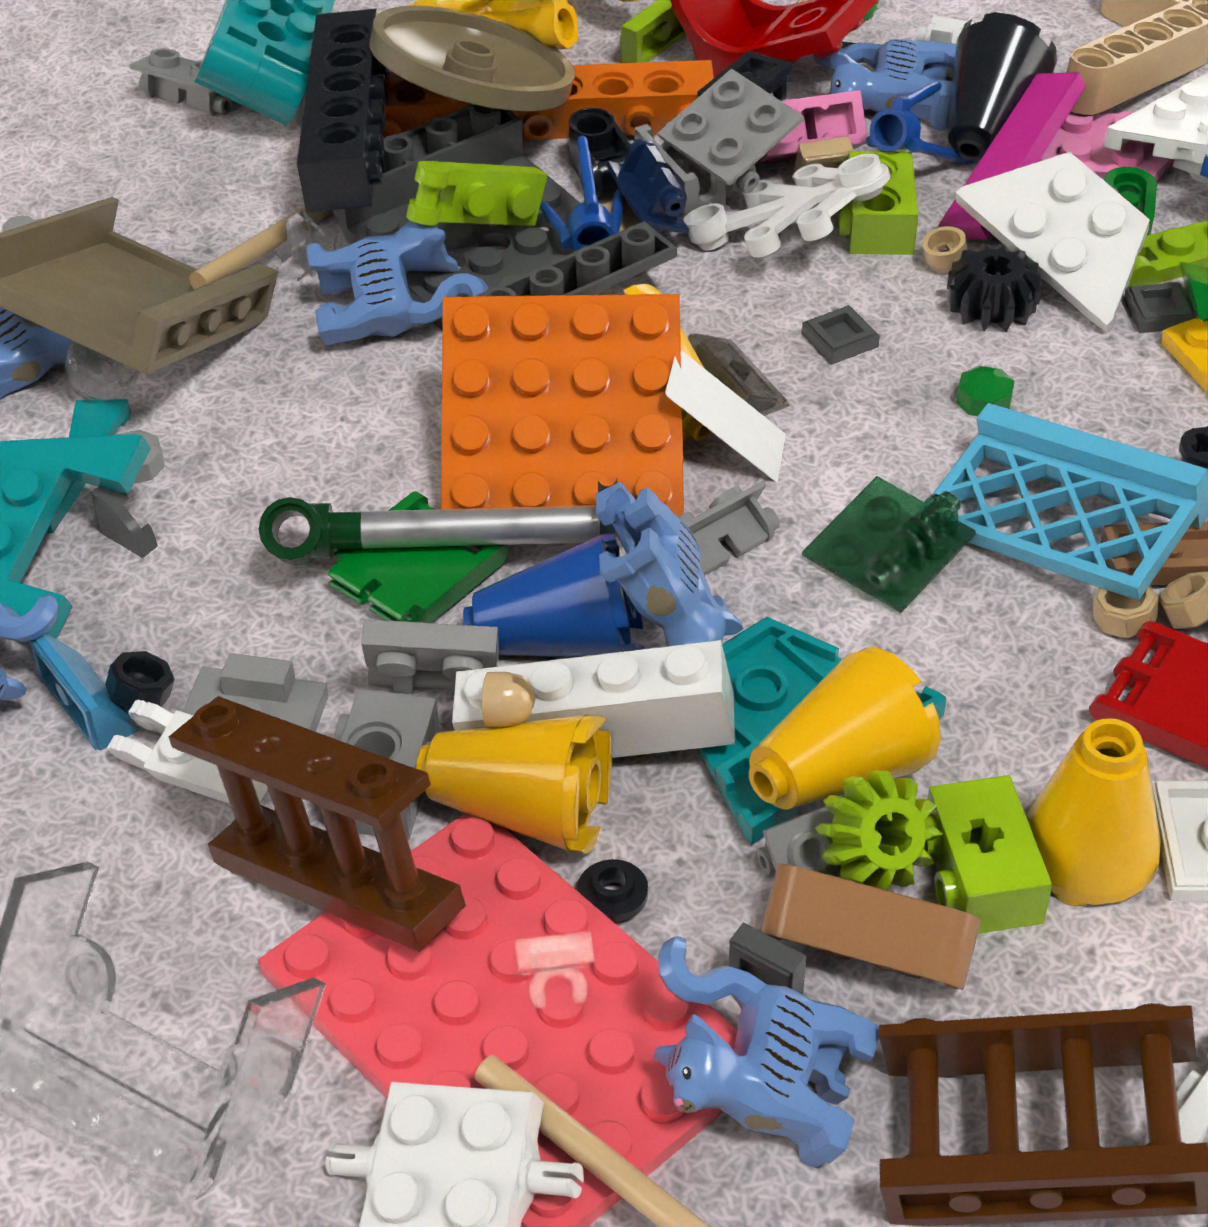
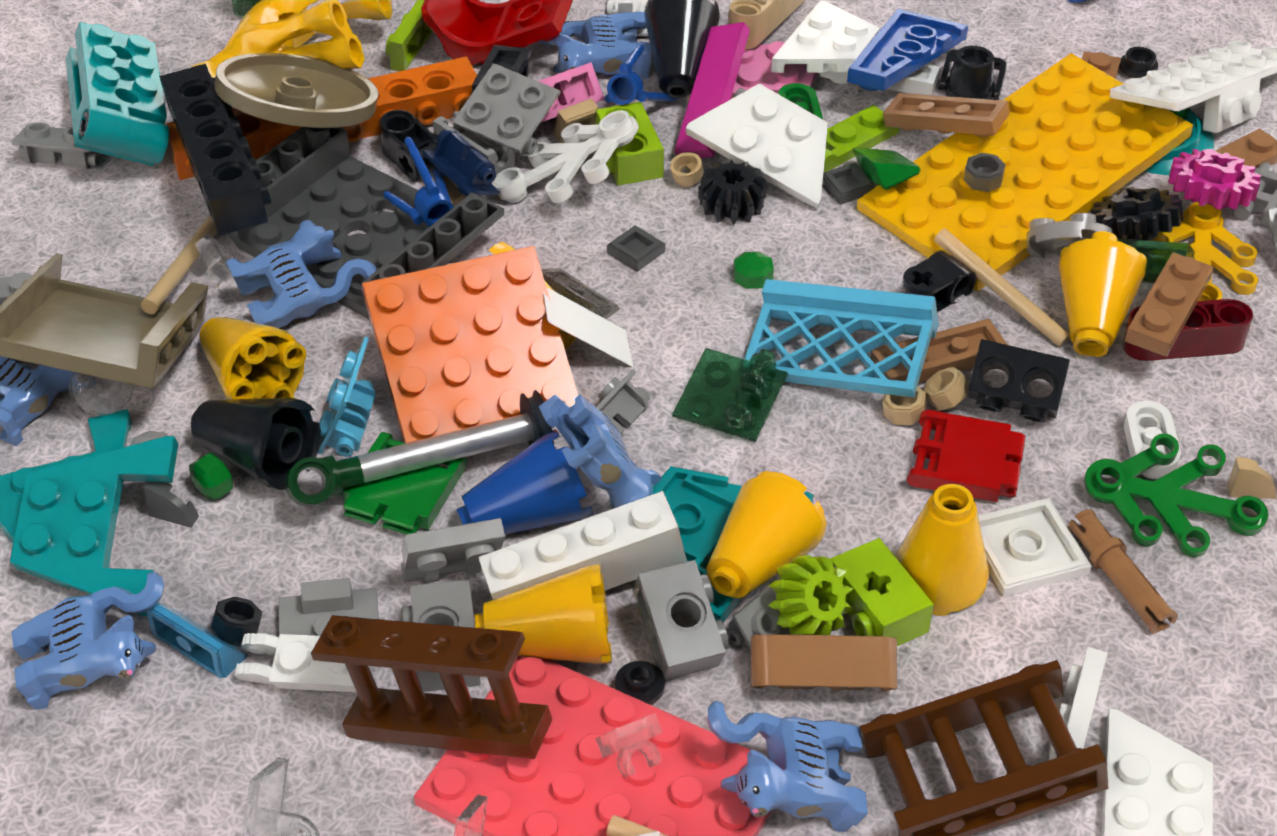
camera: 20 degrees left, 0 degrees up
(185, 500) = (211, 476): none -> green tile
(261, 460) = (258, 435): none -> black cone
(293, 377) = (252, 358): none -> yellow cone
(385, 450) = (350, 407): none -> medium azure hinge
(476, 194) = (343, 196): lime plate -> none
(506, 699) = (532, 568): tan hinge -> none
(686, 778) = (674, 647): none -> light grey brick
(767, 958) = (766, 700): dark grey tile -> none

